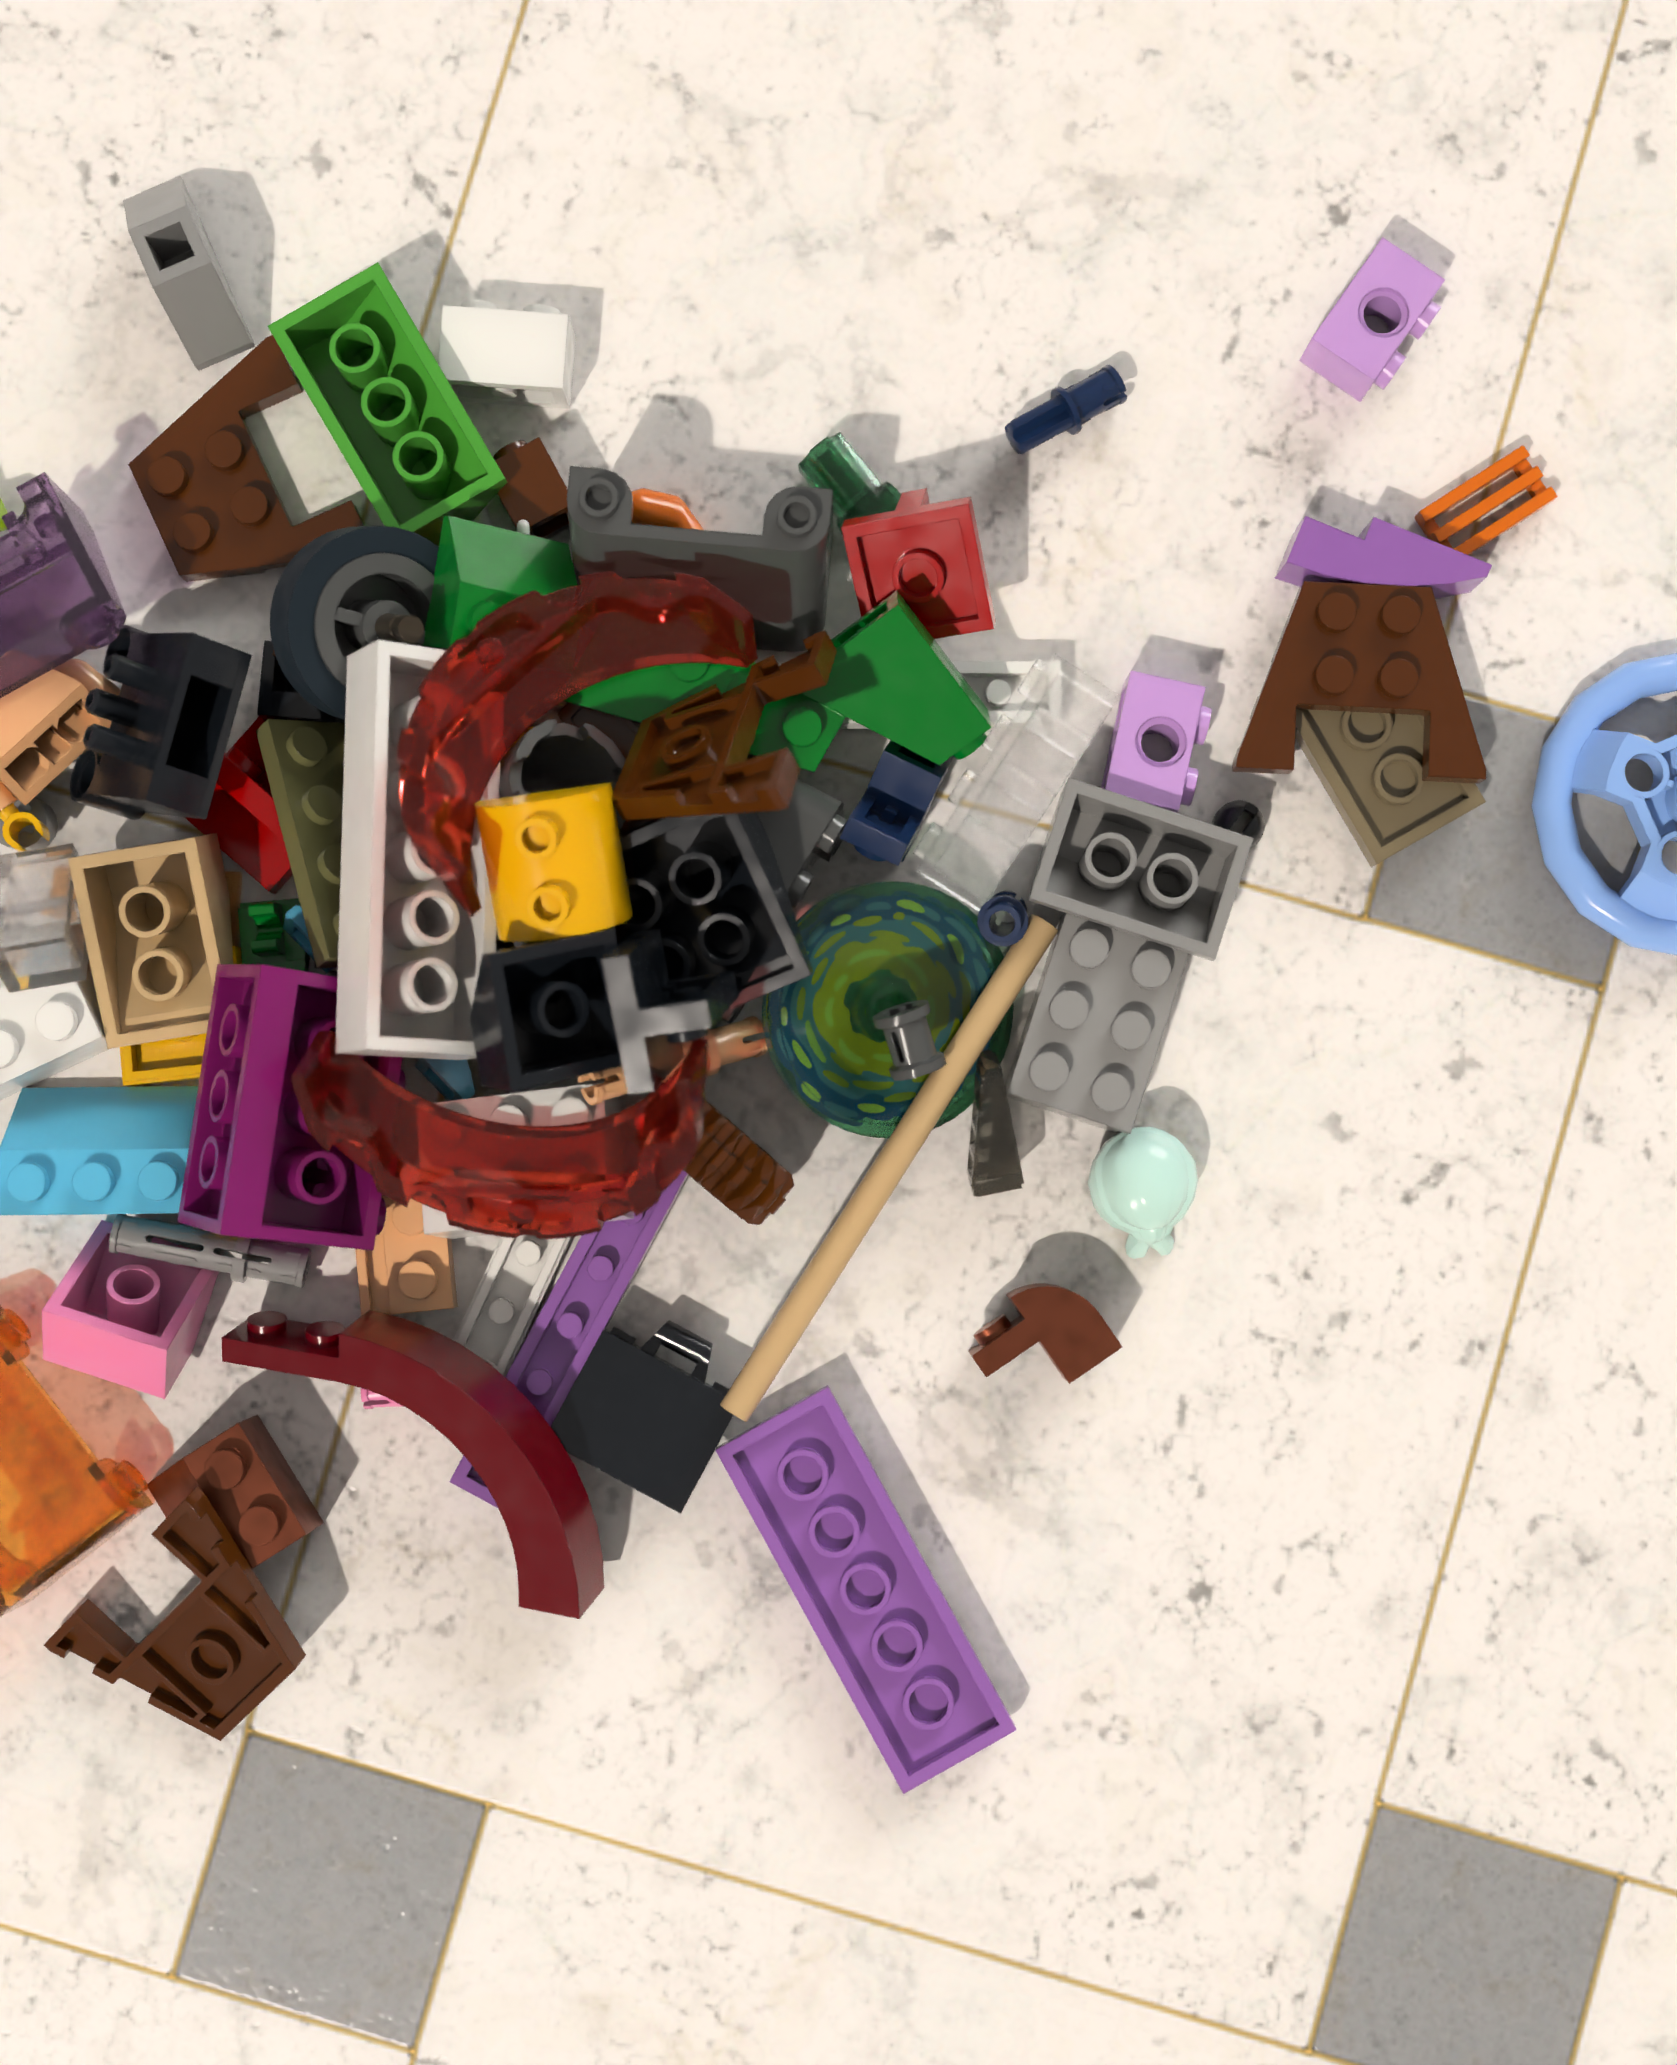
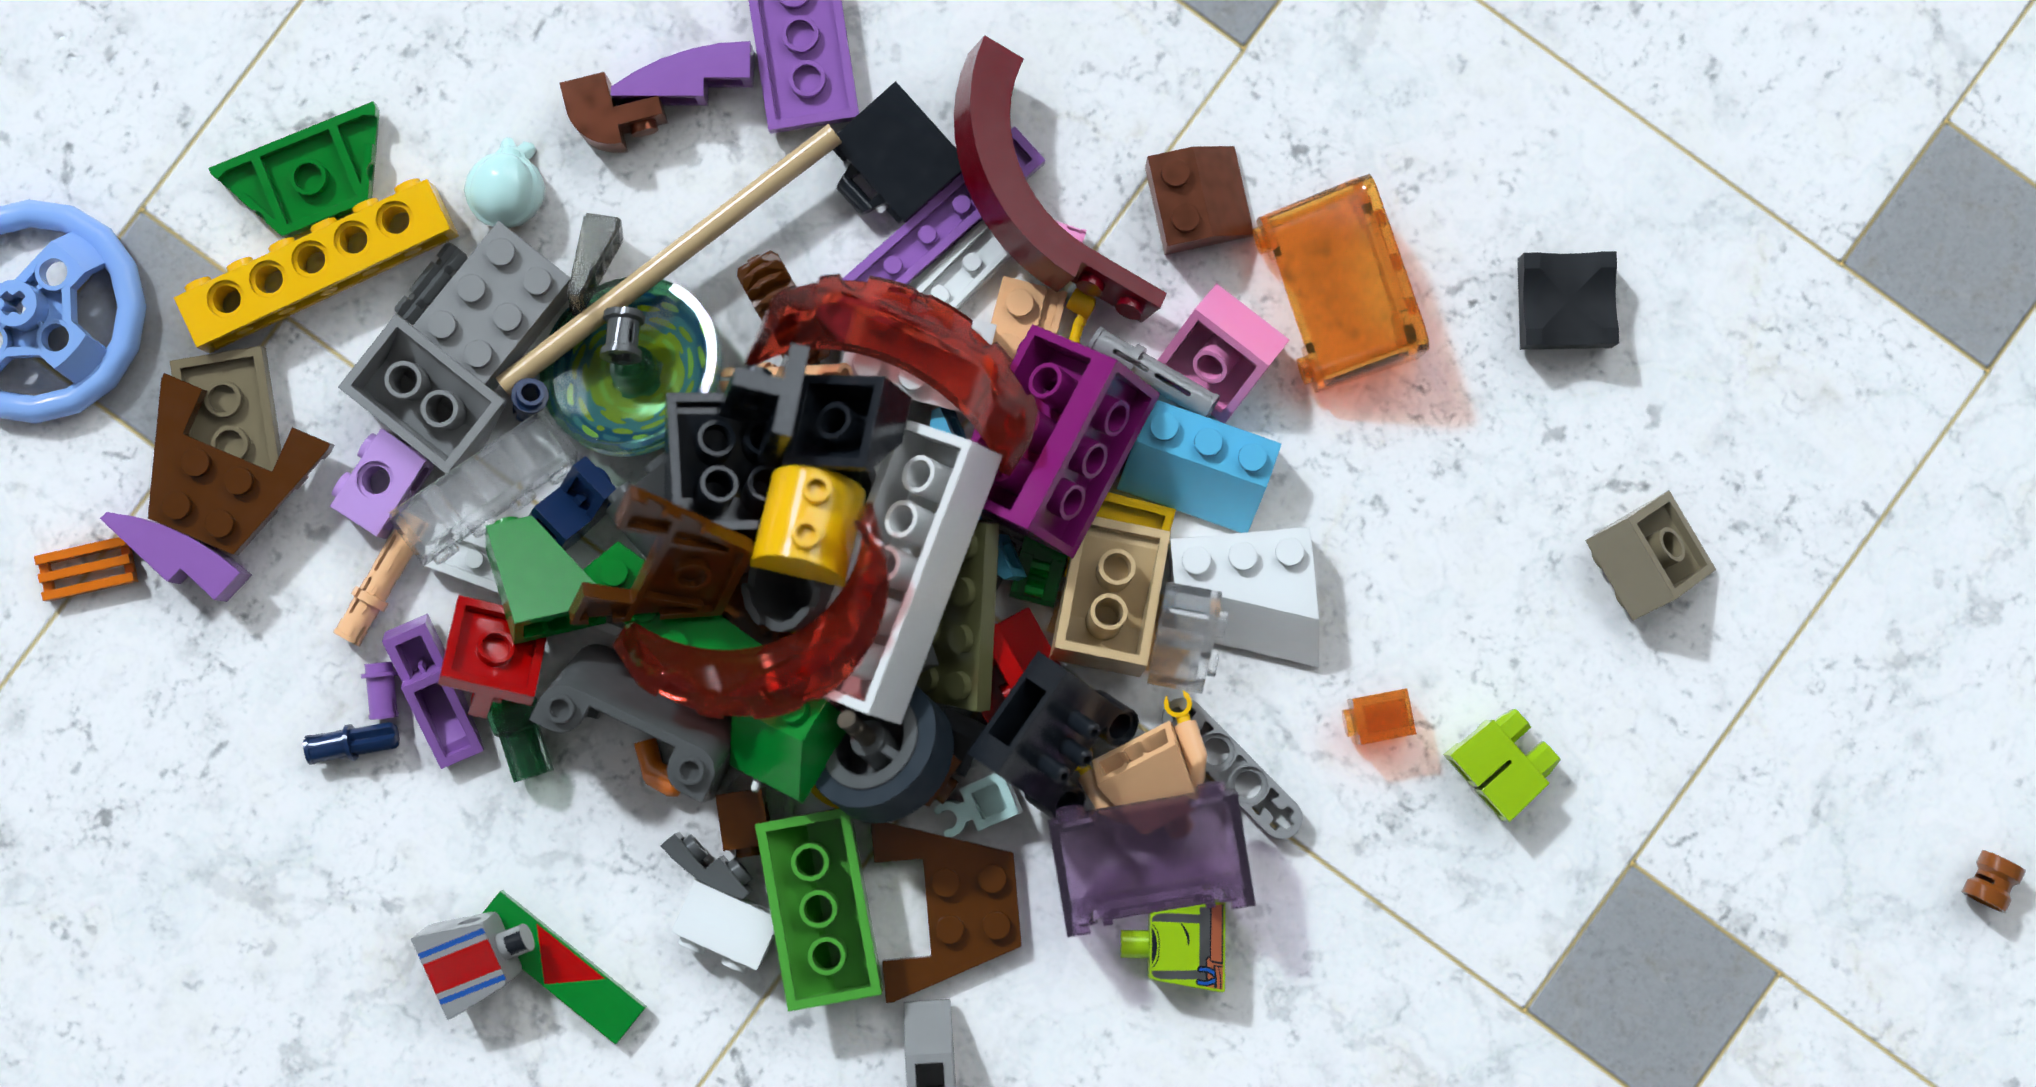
camera: 165 degrees left, 0 degrees up
(213, 1650) = (1244, 104): reddish brown wing -> none
(237, 618) = (985, 802): none -> light aqua plate
(333, 1304) = (1082, 306): none -> yellow hand
(541, 413) = (721, 875): none -> dark grey slope
(701, 234) = (570, 973): none -> green tile
(809, 195) = (470, 958): none -> torso
(962, 1421) = (687, 75): none -> medium lavender slope
(1012, 534) = (437, 708): none -> medium lavender slope
(1053, 489) = (381, 690): none -> medium lavender pin
(1110, 608) = (374, 590): none -> light nougat pin
(1192, 1026) = (430, 283): none -> dark grey axle
(1230, 813) = (348, 418): black hinge -> none
(1387, 287) = (139, 721): lavender brick -> none
(1405, 1110) = (308, 173): none -> green wing
(1449, 867) = (203, 300): none -> yellow brick

